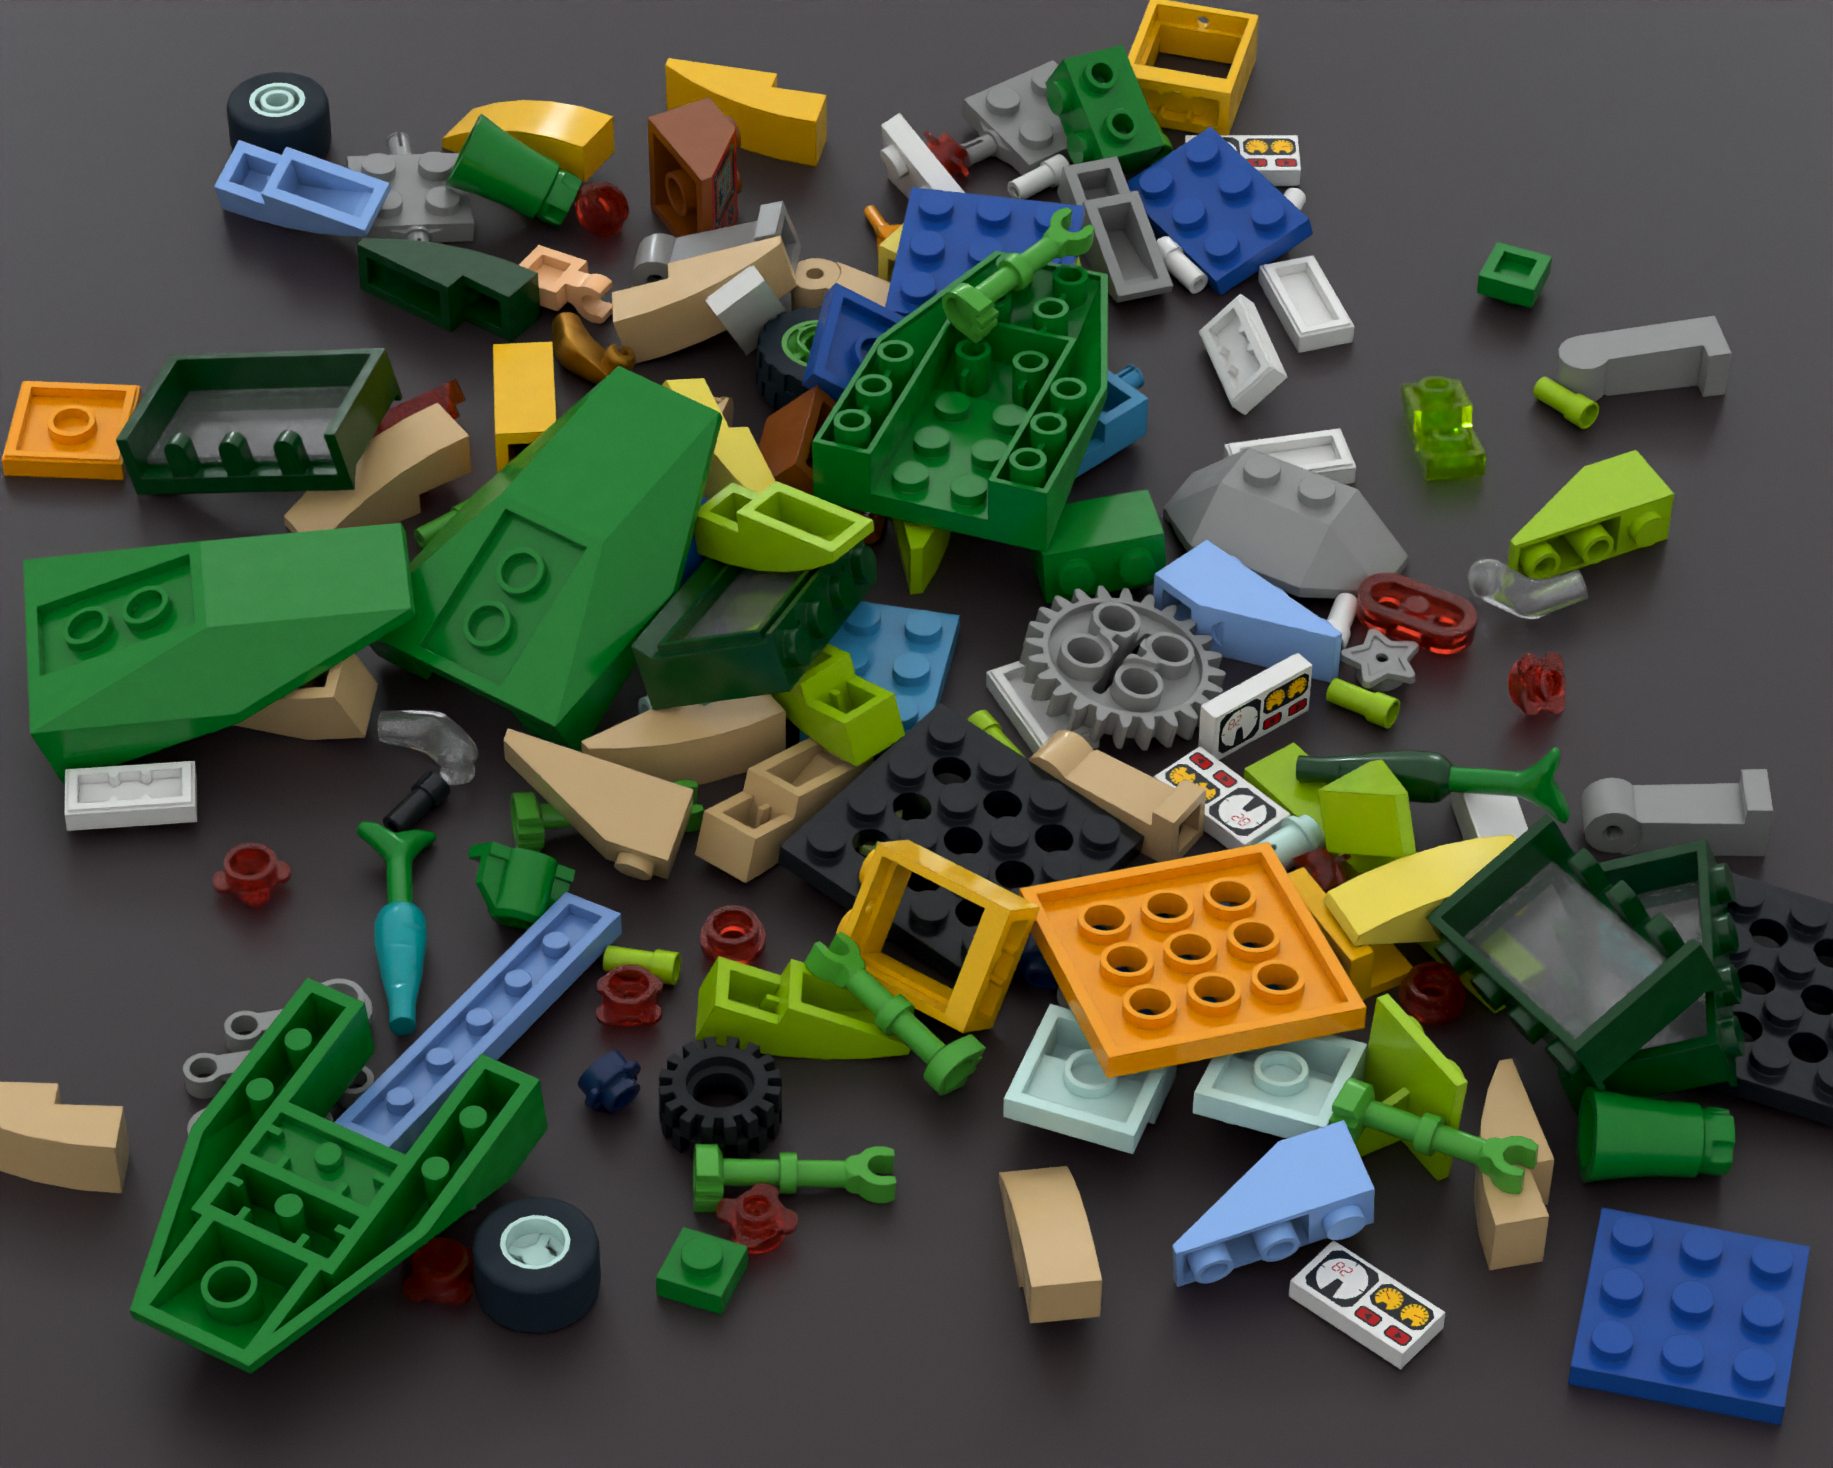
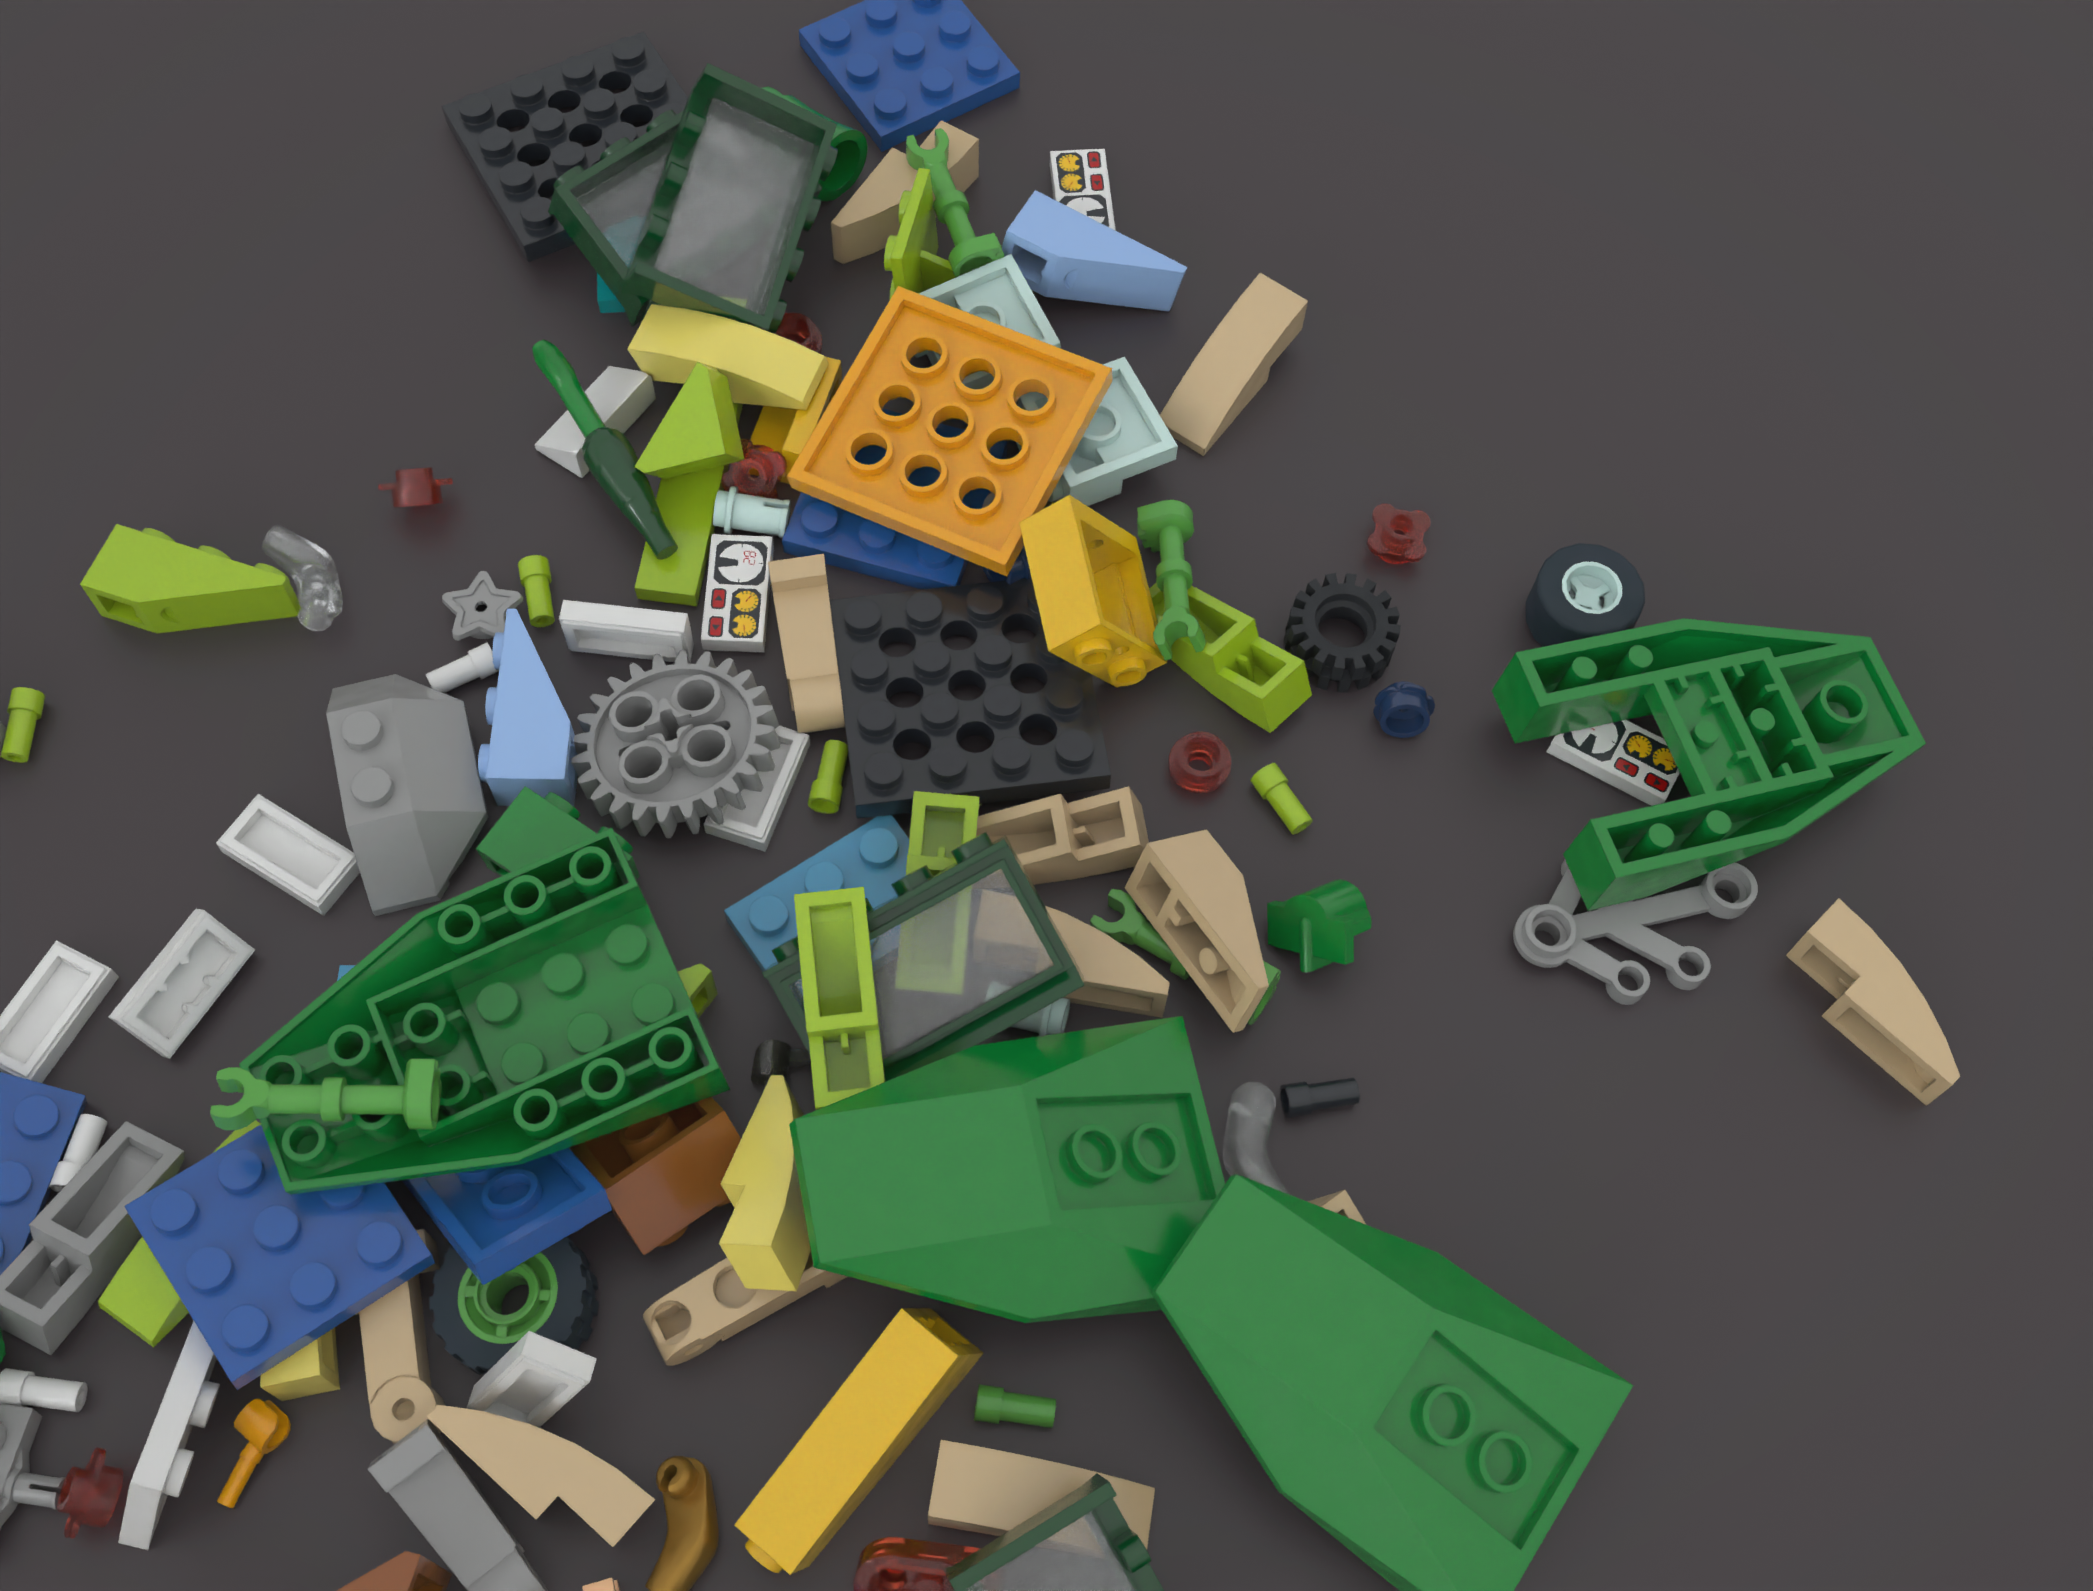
camera: 140 degrees left, 20 degrees up
(130, 795) = (1554, 1294): white plate -> none
(251, 874) = (1524, 1116): clear red plate -> none
(400, 924) = (1436, 975): teal piece -> none
(484, 1020) = (1466, 814): medium blue plate -> none
(629, 997) = (1327, 757): clear red plate -> none
(702, 1270) = (1466, 532): green plate -> none
(788, 1173) = (1347, 548): bright green piece -> none
(1416, 613) = (407, 625): clear red plate -> none
(1442, 429) = (153, 773): clear neon green slope -> none
(1654, 817) = (468, 319): light grey leg -> none

